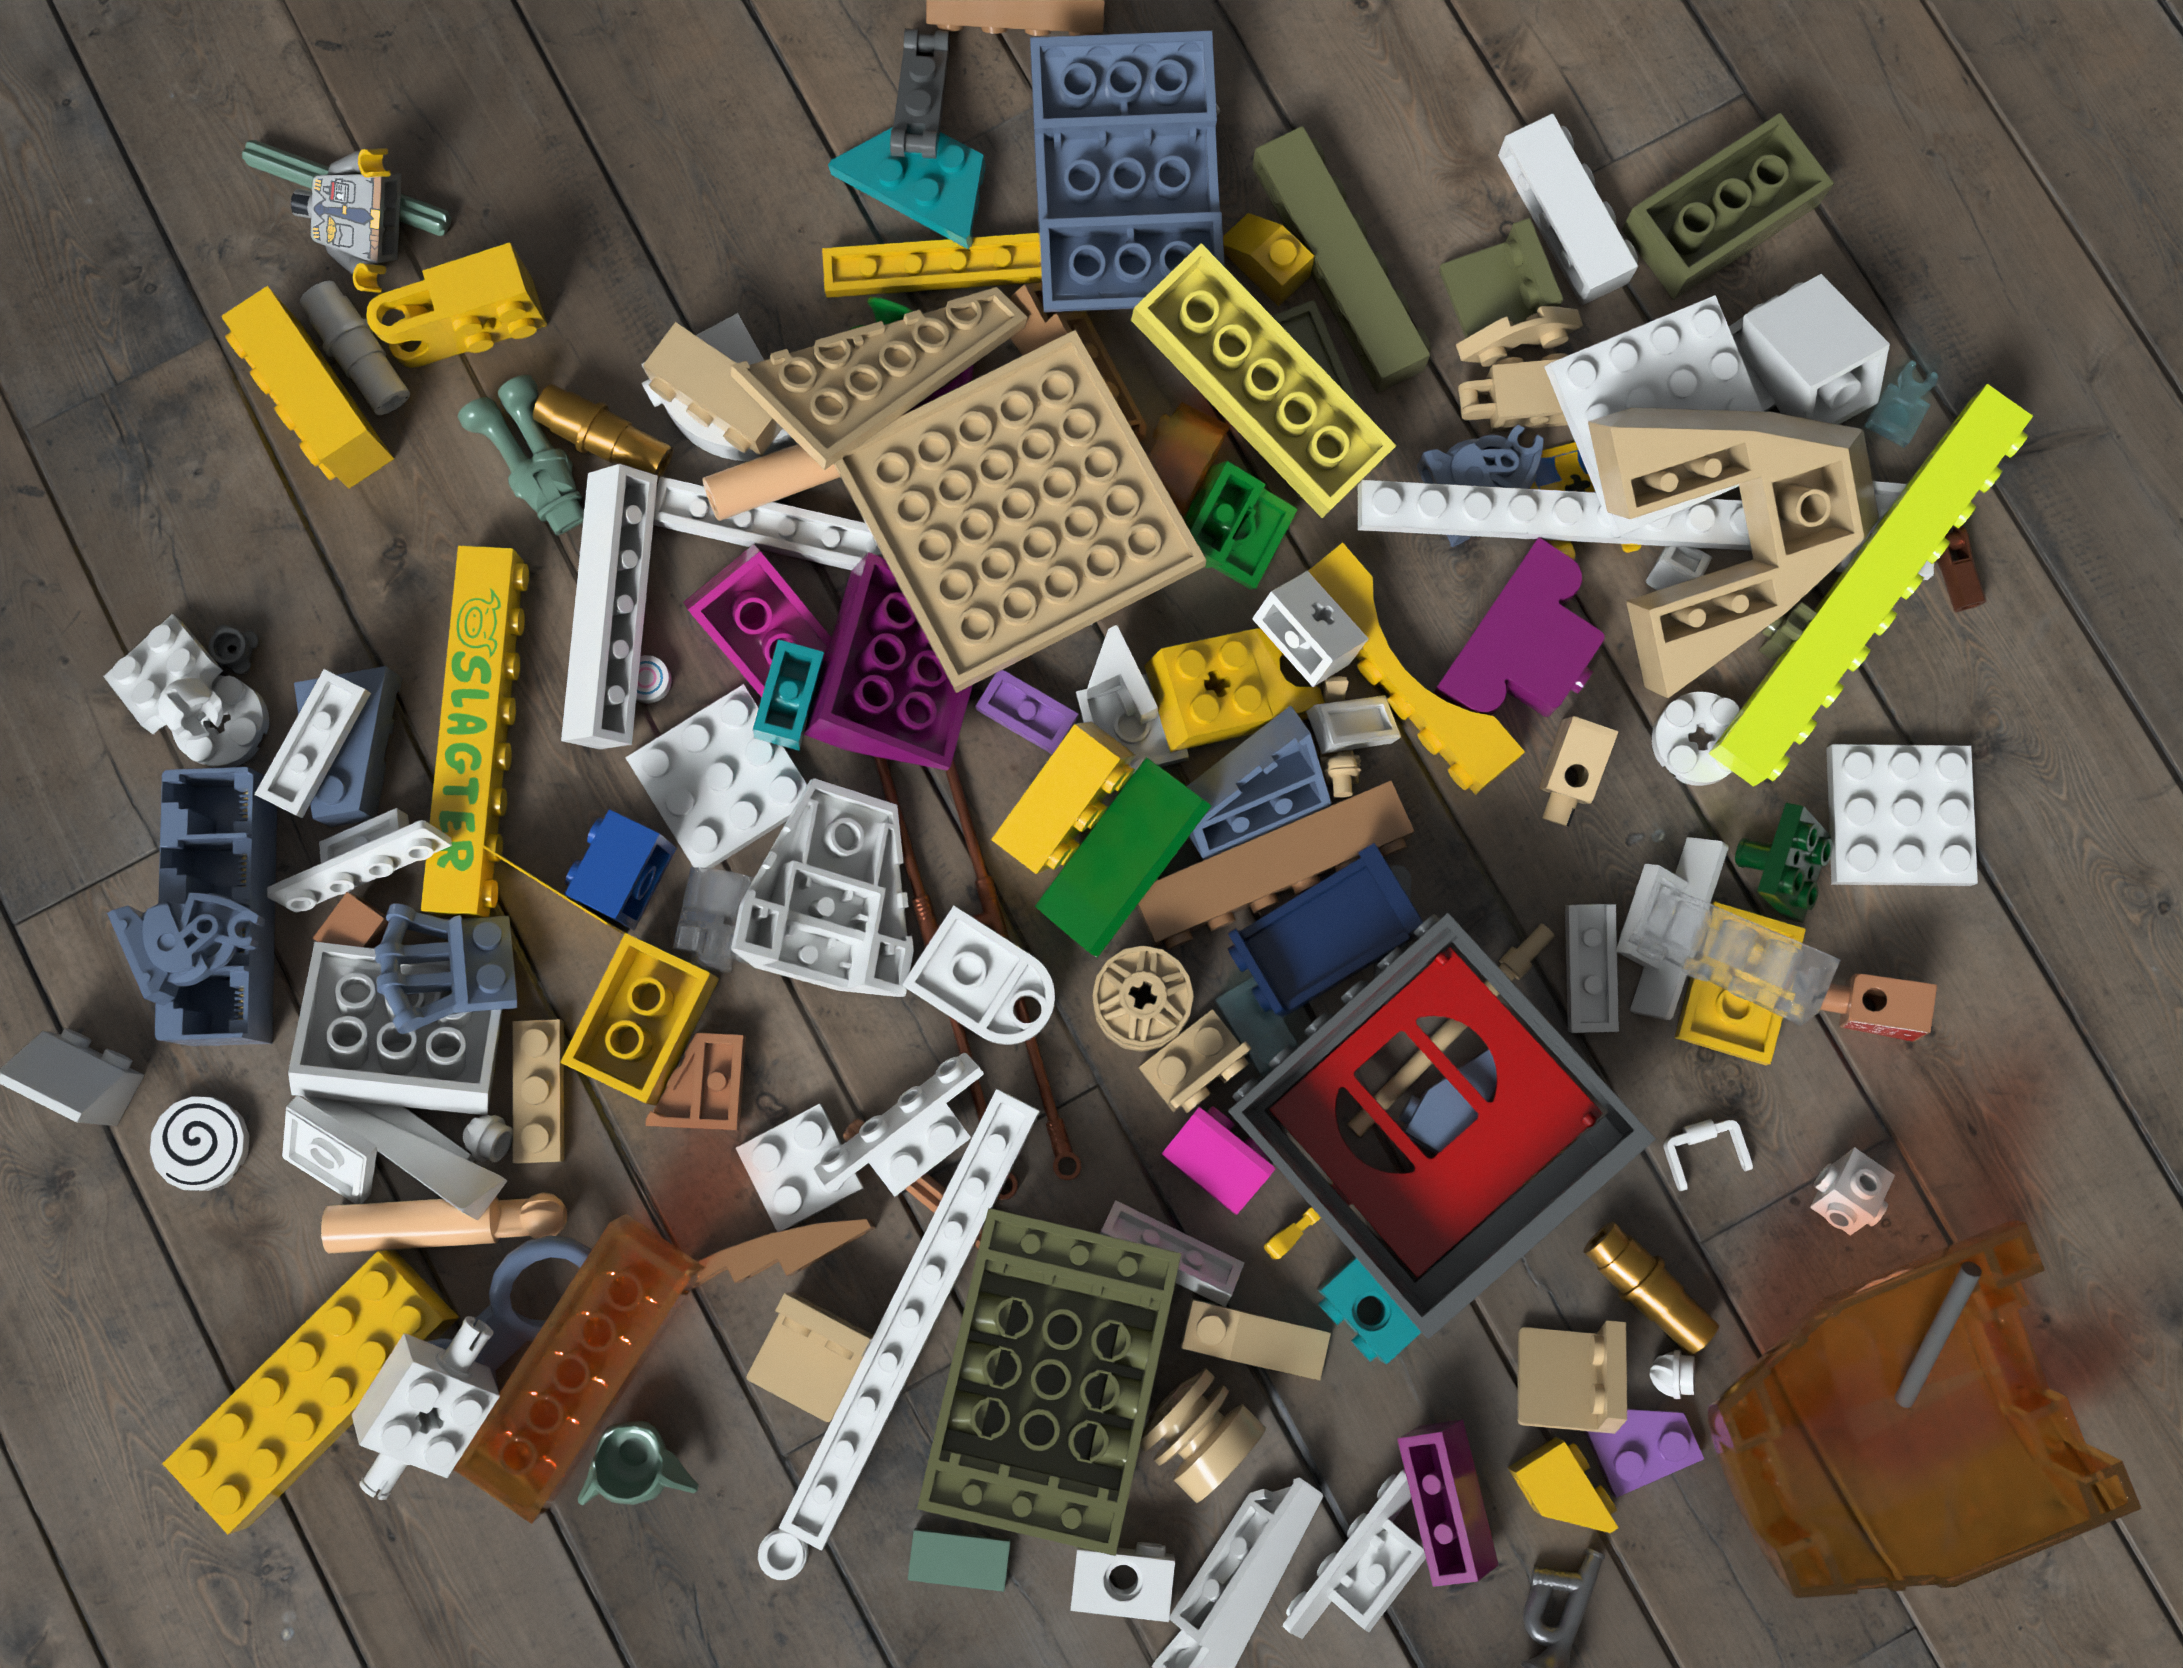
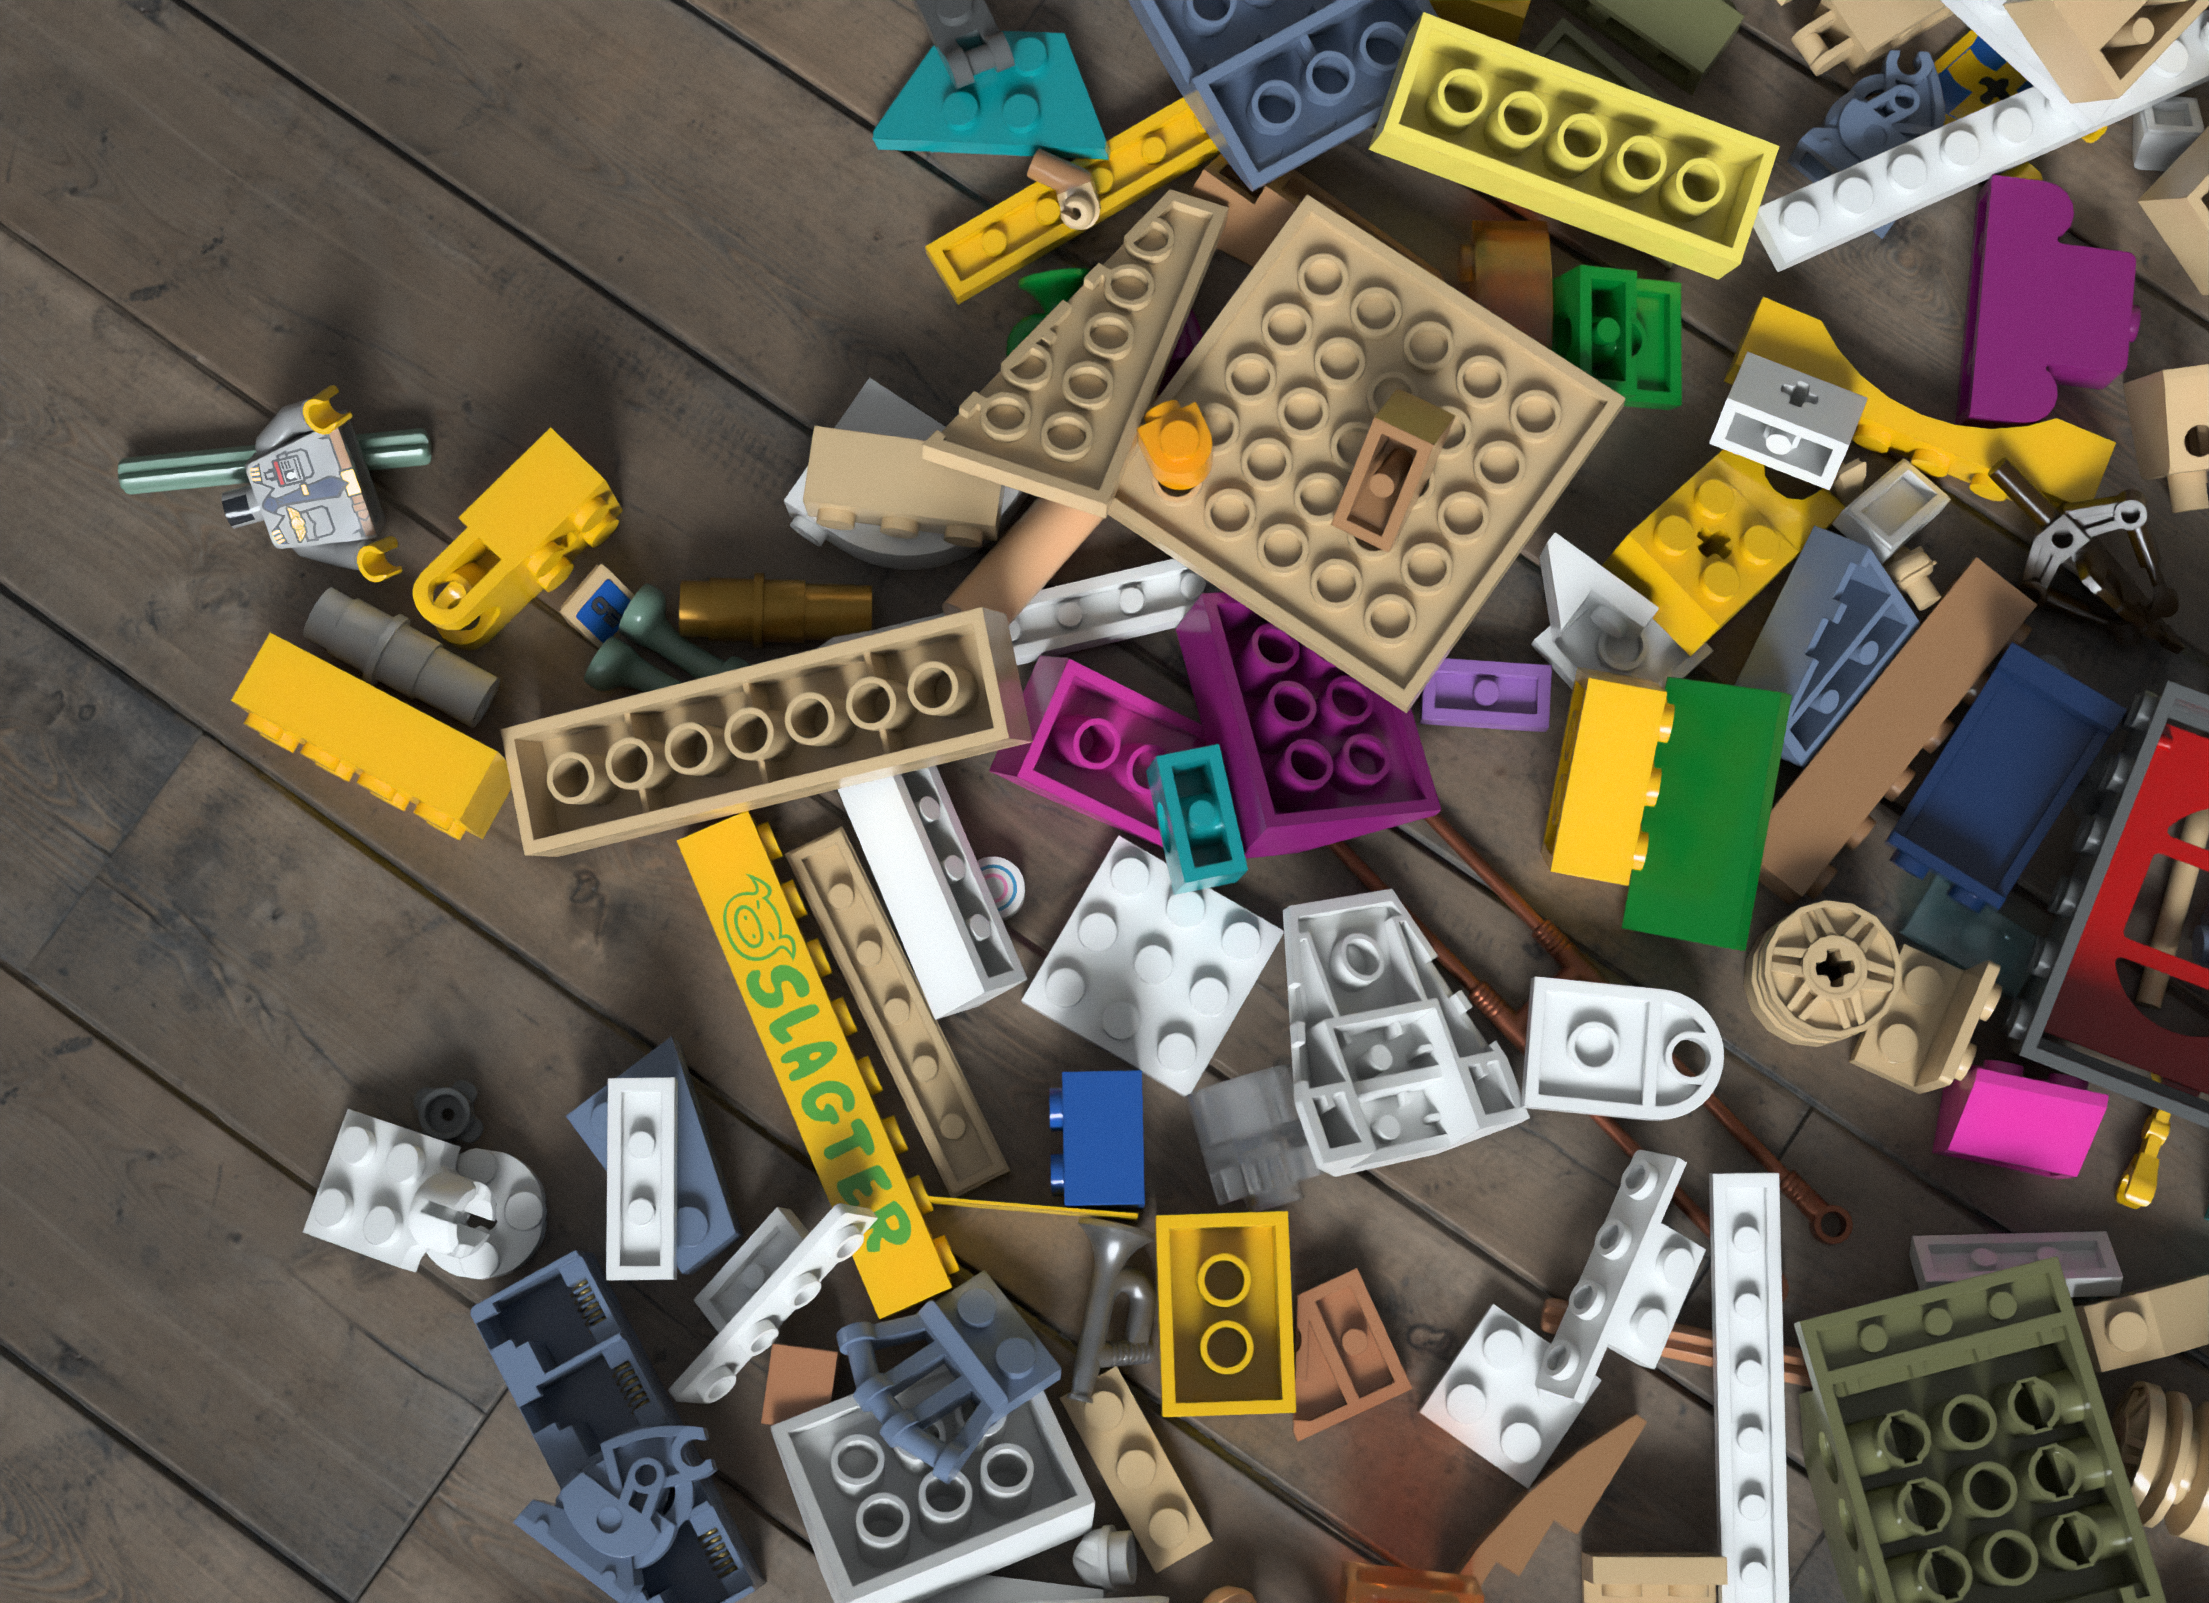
camera: 30 degrees left, 0 degrees up
(491, 372) = (597, 606): none -> slope
(542, 502) = (767, 733): none -> tan brick
(542, 753) = (897, 1013): none -> tan tile
(584, 960) = (1112, 1247): none -> flat silver piece
(898, 446) = (1176, 444): none -> light orange plate
(934, 256) = (1073, 187): none -> arm
(1025, 527) = (1392, 469): none -> medium nougat slope
(1470, 824) = (2073, 532): none -> dark brown bar

